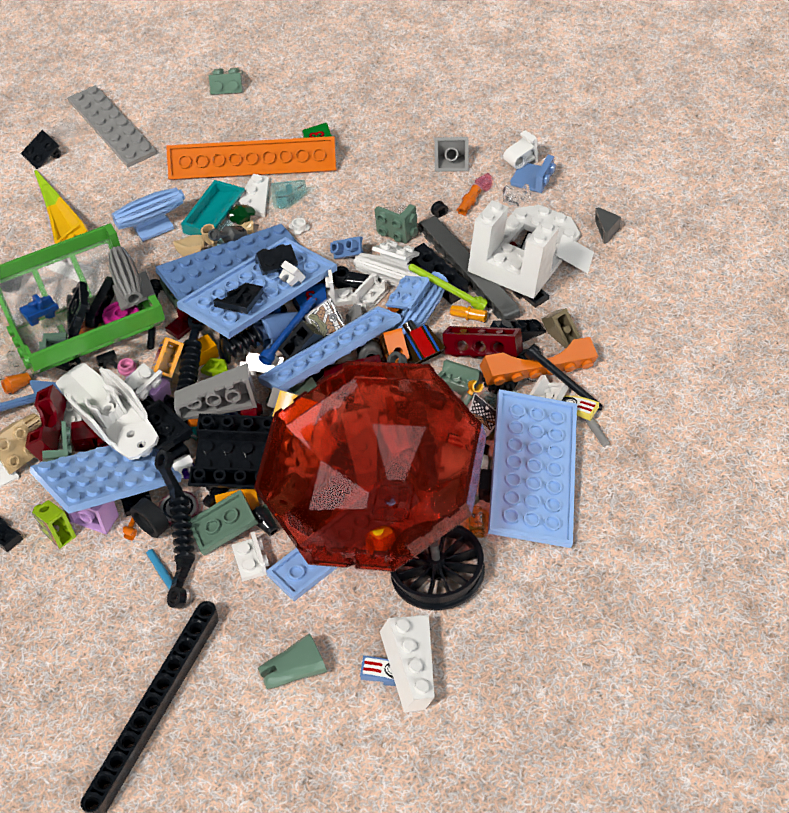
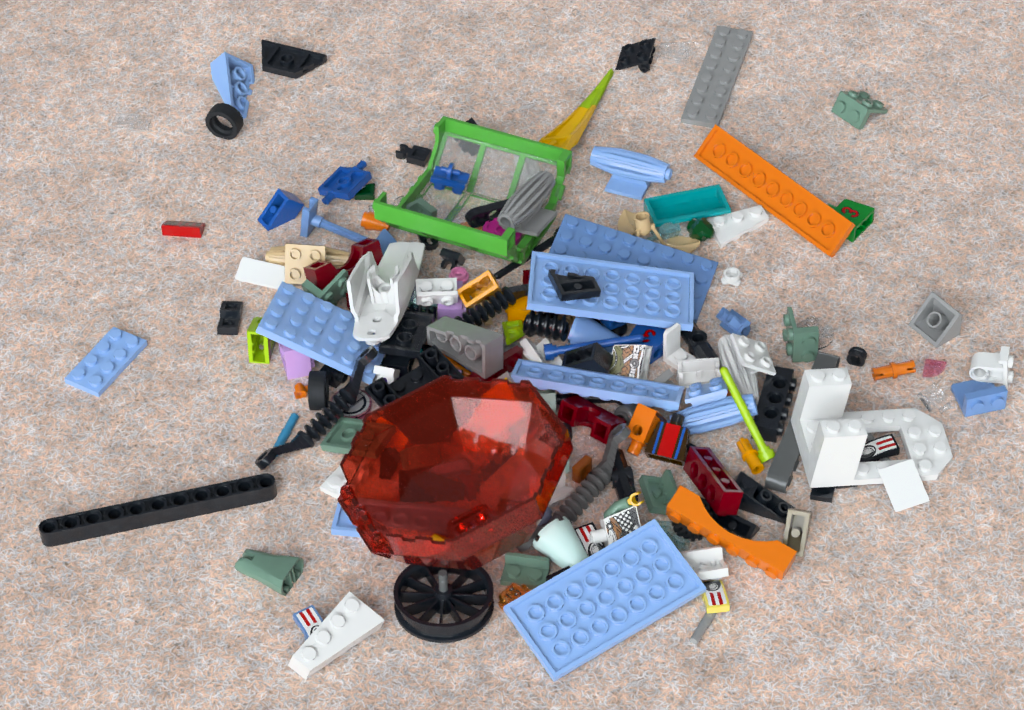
camera: 50 degrees right, 5 degrees down
(77, 308) = (471, 200): black wing -> none
(228, 233) = (659, 235): dark grey piece -> none
(272, 259) = (649, 281): black bracket -> none
(287, 193) = (759, 242): clear light blue slope -> none
(291, 274) = (639, 300): white tile -> none
(535, 354) = (722, 519): black piece -> none
(607, 224) = (969, 488): dark grey slope -> none

